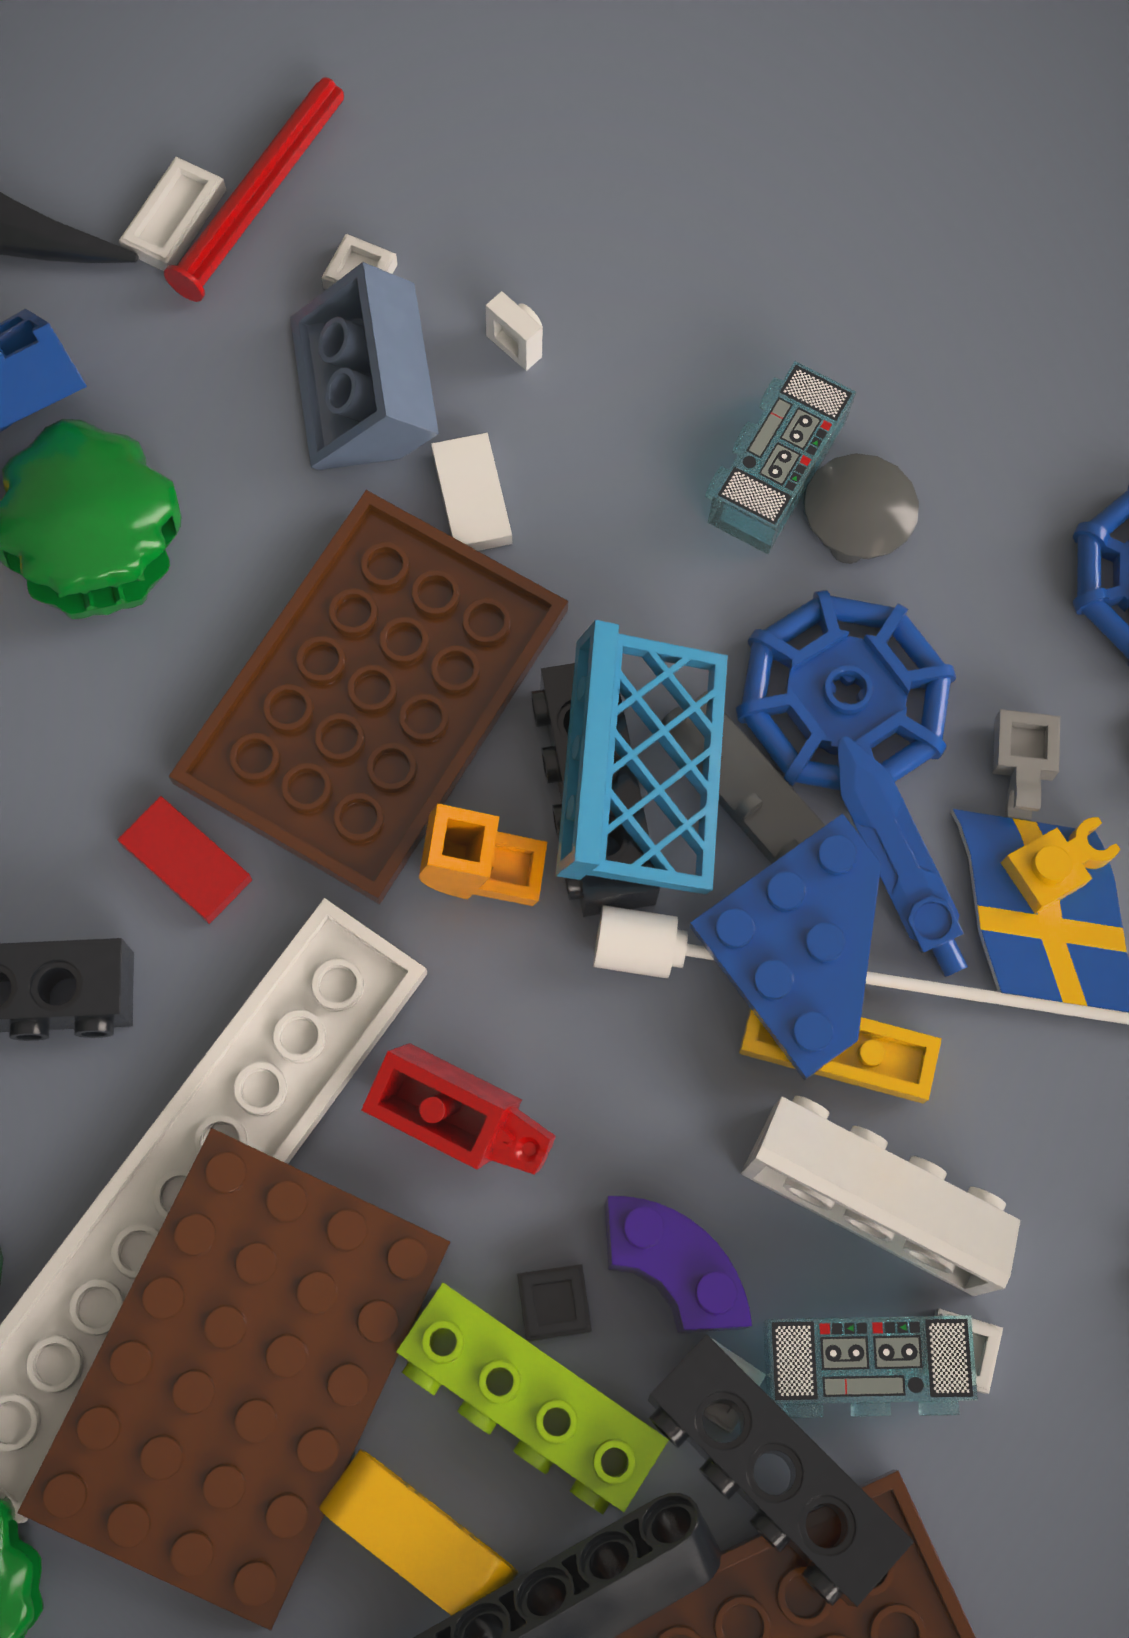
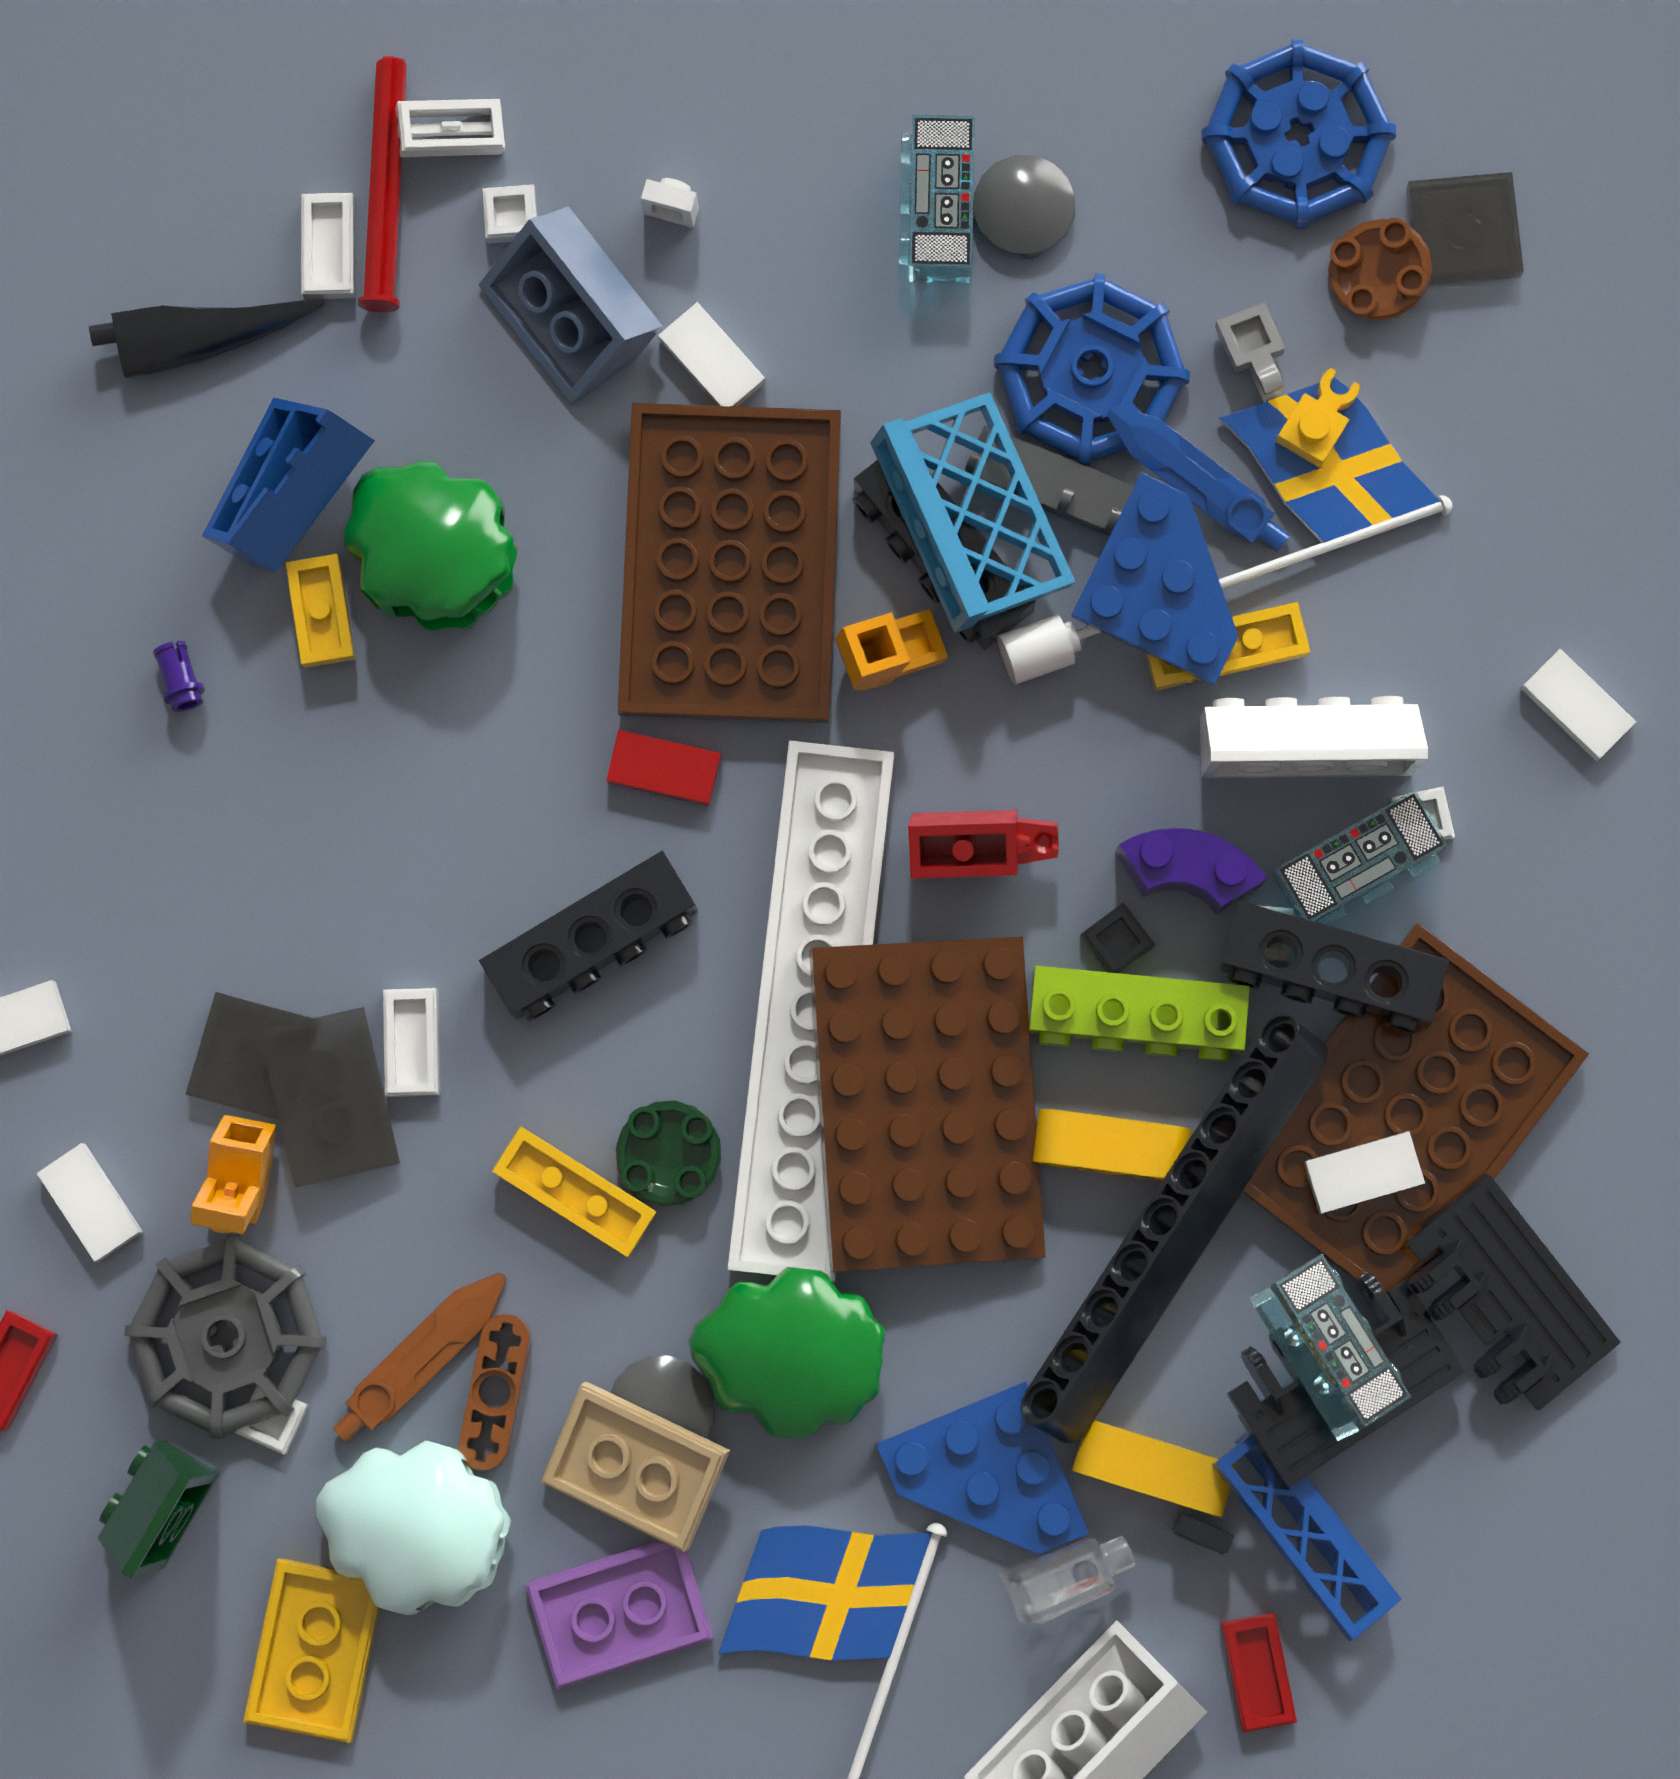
camera: 20 degrees left, 10 degrees up
(344, 174) = (450, 147): none -> white tile

